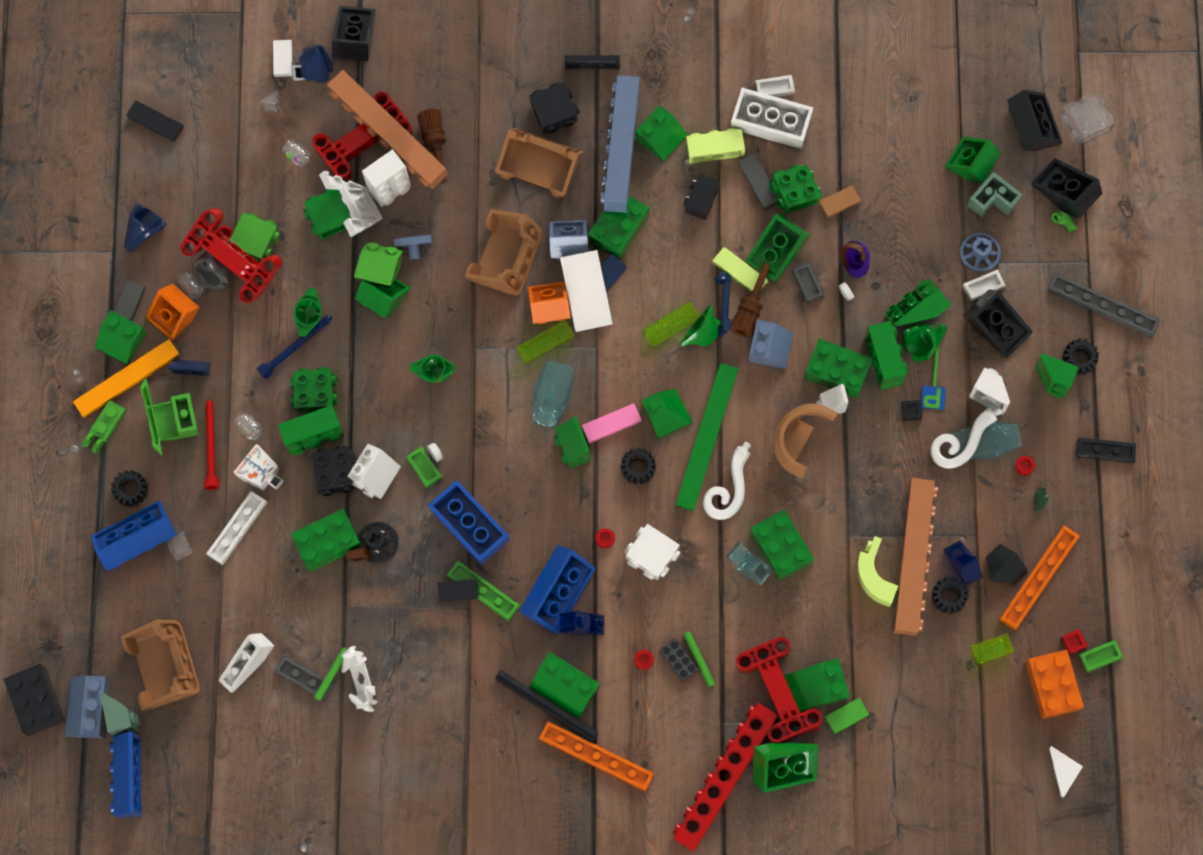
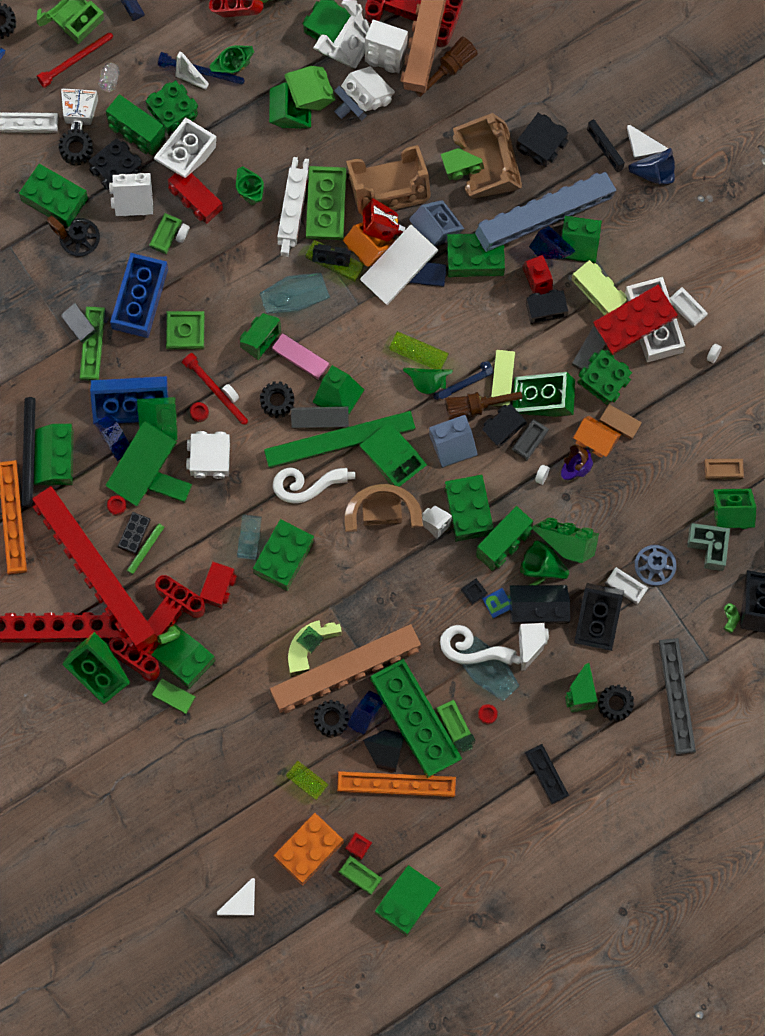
camera: 50 degrees right, 0 degrees up
(289, 483) = (76, 137): none -> black tyre
(292, 356) = (187, 72): none -> white tile
(363, 400) = (186, 148): none -> white slope
(407, 420) = (196, 196): none -> red brick
(413, 218) = (368, 89): none -> white brick
(474, 345) = (293, 206): none -> white hinge
(488, 317) = (326, 203): none -> bright green plate
(523, 504) = (185, 330): none -> bright green tile
(528, 186) = (461, 163): none -> bright green slope
(538, 281) = (380, 221): none -> red torso
(547, 334) = (324, 254): none -> black hinge
(557, 516) = (191, 362): none -> red piece
(593, 575) = (159, 413): none -> green slope
(607, 501) = (230, 393): none -> white tile
(610, 33) = (642, 144): none -> white tile
(623, 614) = (141, 463): none -> green tile
(638, 36) = (656, 168): none -> dark blue hat
(653, 159) = (550, 245): none -> clear blue slope
(657, 603) = (171, 487): none -> green tile
(671, 185) = (537, 273): none -> red torso
(677, 440) = (319, 417): none -> dark grey tile
(694, 712) = (95, 569): none -> red brick
(754, 400) = (392, 455): none -> green slope
(765, 131) = (635, 319): none -> red plate
(772, 617) = (218, 584): none -> red brick
(784, 295) = (504, 425): none -> black brick
(796, 684) = (171, 634): none -> bright green arm
(829, 91) = (714, 353): none -> white tile
(844, 226) = (596, 436): none -> orange slope
(875, 568) = (310, 639): none -> clear green plate
(932, 147) = (723, 468): none -> medium nougat tile
(958, 363) = (539, 604): none -> black slope
(994, 525) = (415, 718): none -> green plate
(1014, 497) = (453, 721): none -> bright green tile
(1147, 631) = (407, 900): none -> green slope

